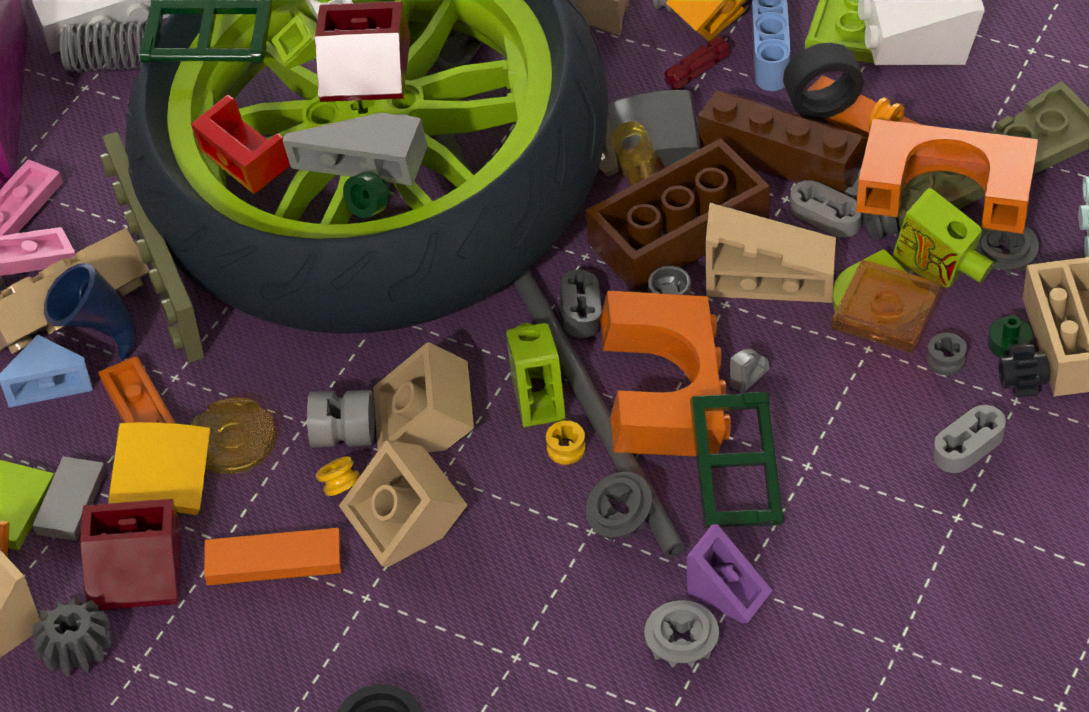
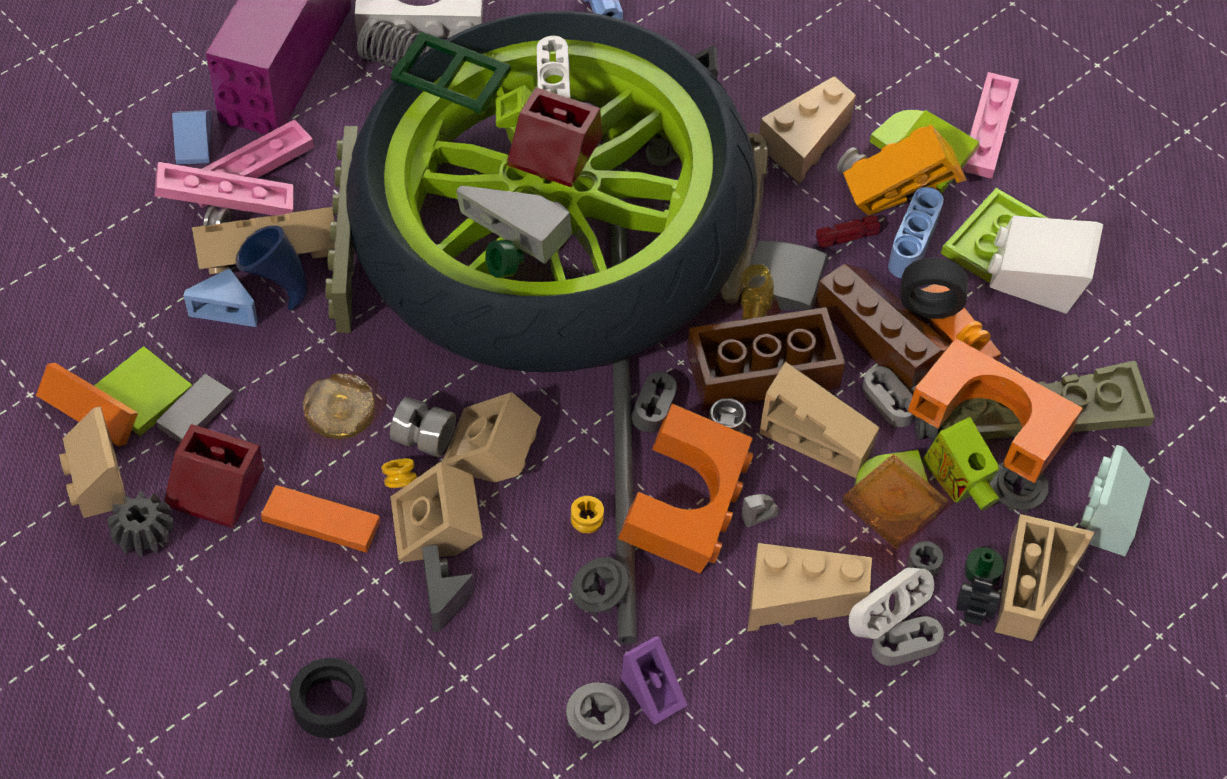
camera: 15 degrees right, 5 degrees up
(134, 393) = (282, 359): orange tile -> none
(159, 464) = (268, 412): yellow slope -> none
(238, 146) = (427, 179): red panel -> none
(450, 578) = (445, 593): none -> dark grey slope
(535, 356) = (588, 430): lime torso -> none
(705, 461) = (748, 546): dark green window -> none
(837, 420) = (805, 584): none -> tan wedge
(925, 422) = (877, 603): none -> white beam

